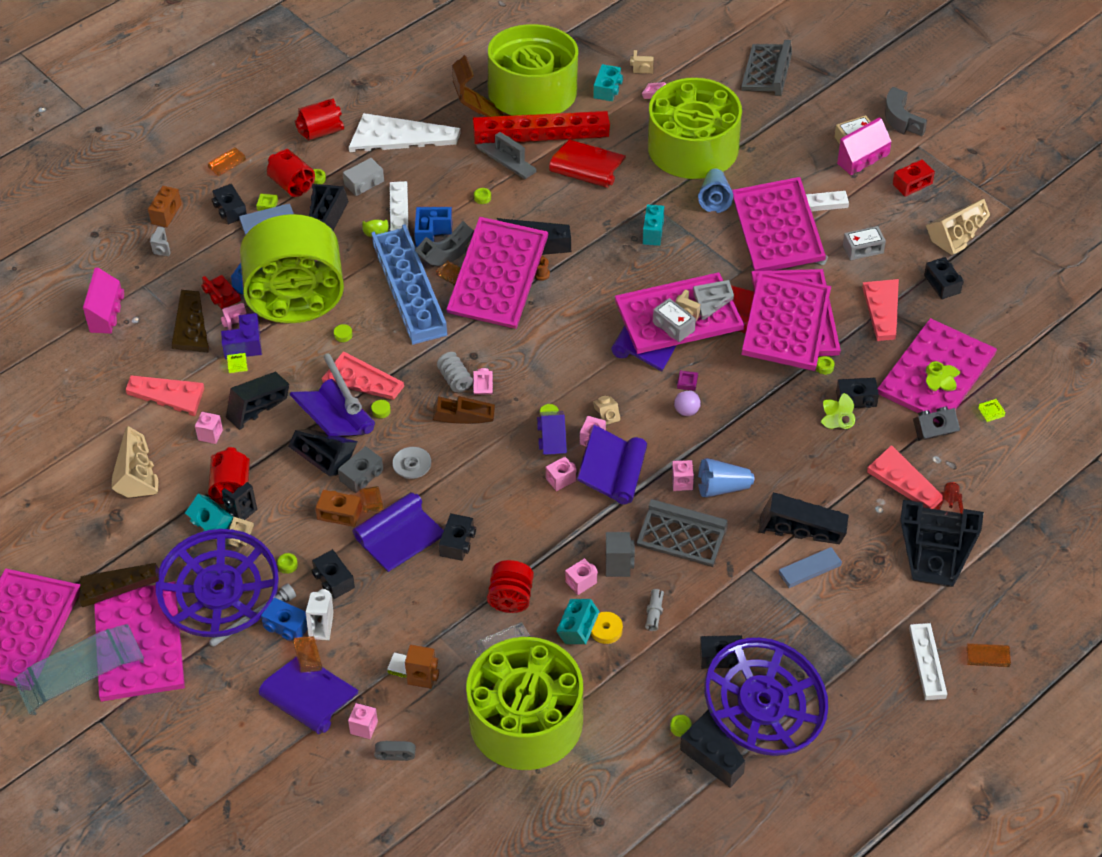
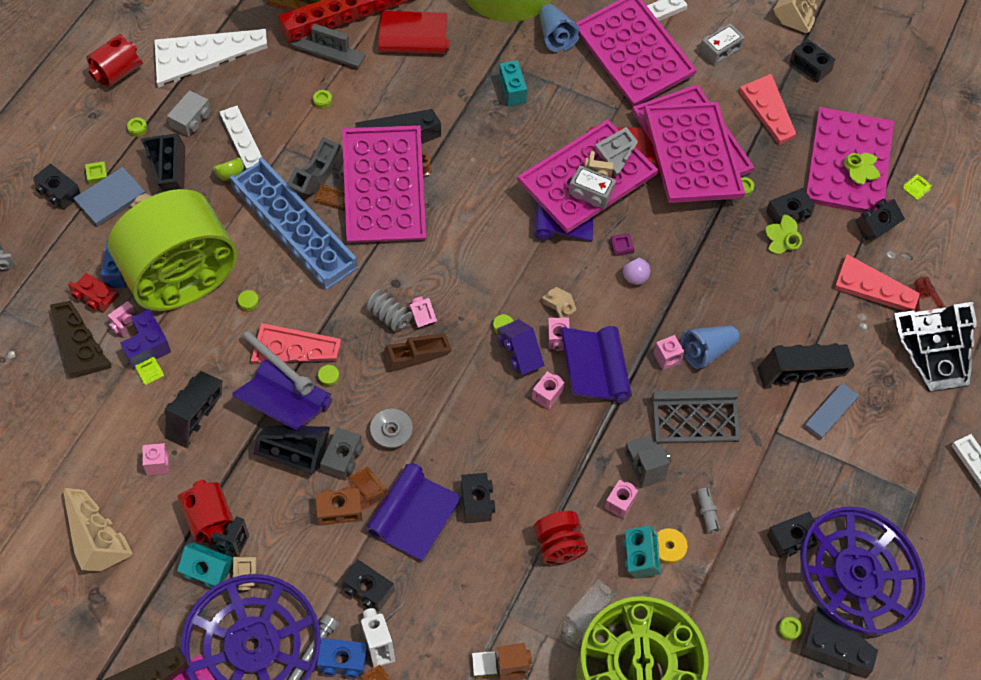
camera: 25 degrees left, 10 degrees up
(174, 393) = (95, 429): coral wing -> none
(226, 161) = (29, 136): clear orange tile -> none
(287, 563) = (311, 588): lime tile -> none
(290, 172) = (110, 132): red cylinder -> none
(432, 222) = (286, 146): blue brick -> none

